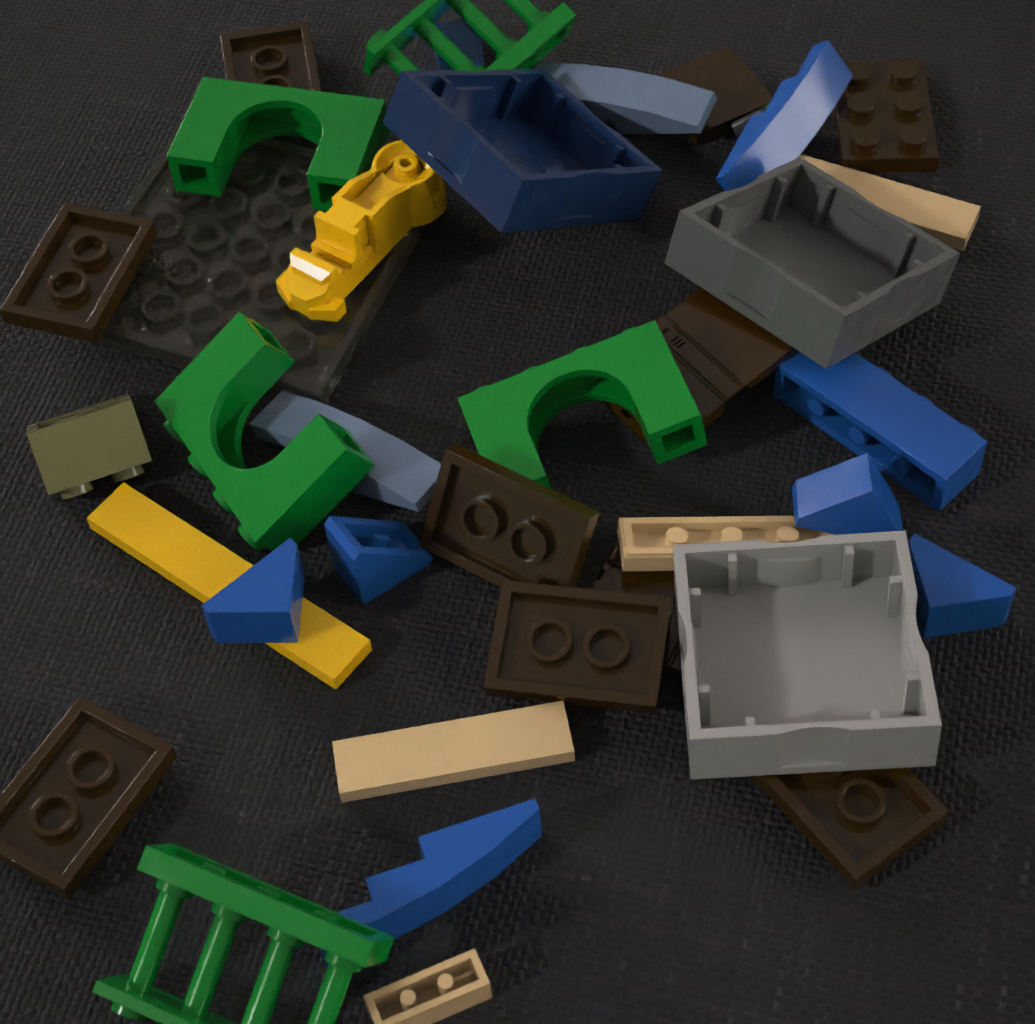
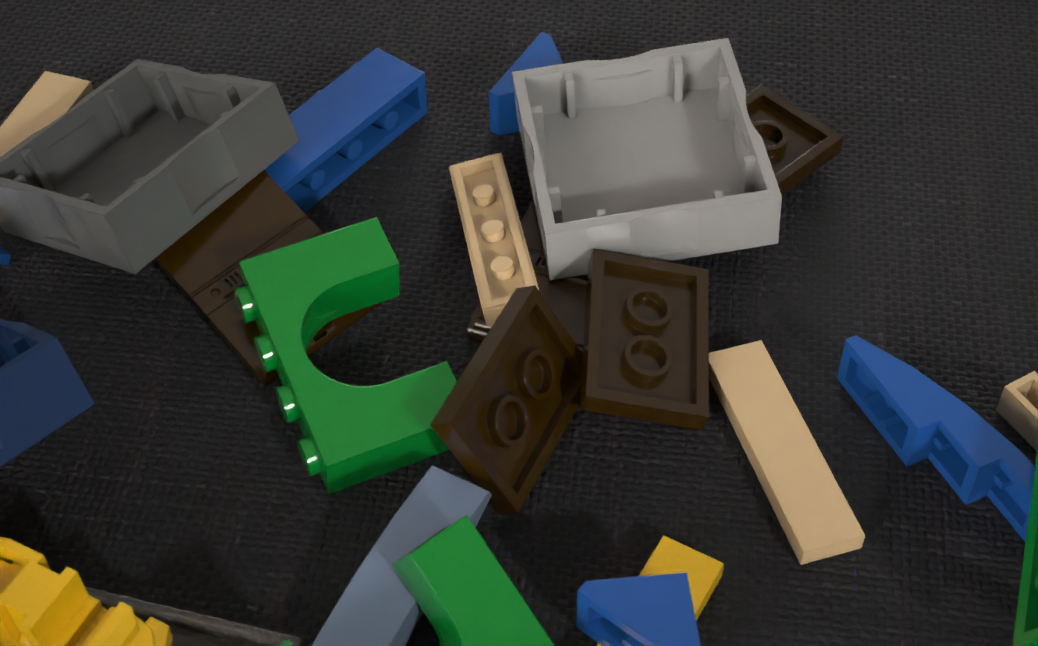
camera: 100 degrees left, 5 degrees down
(373, 554) = (550, 546): blue slope -> none
(846, 500) = (446, 143): blue slope -> none

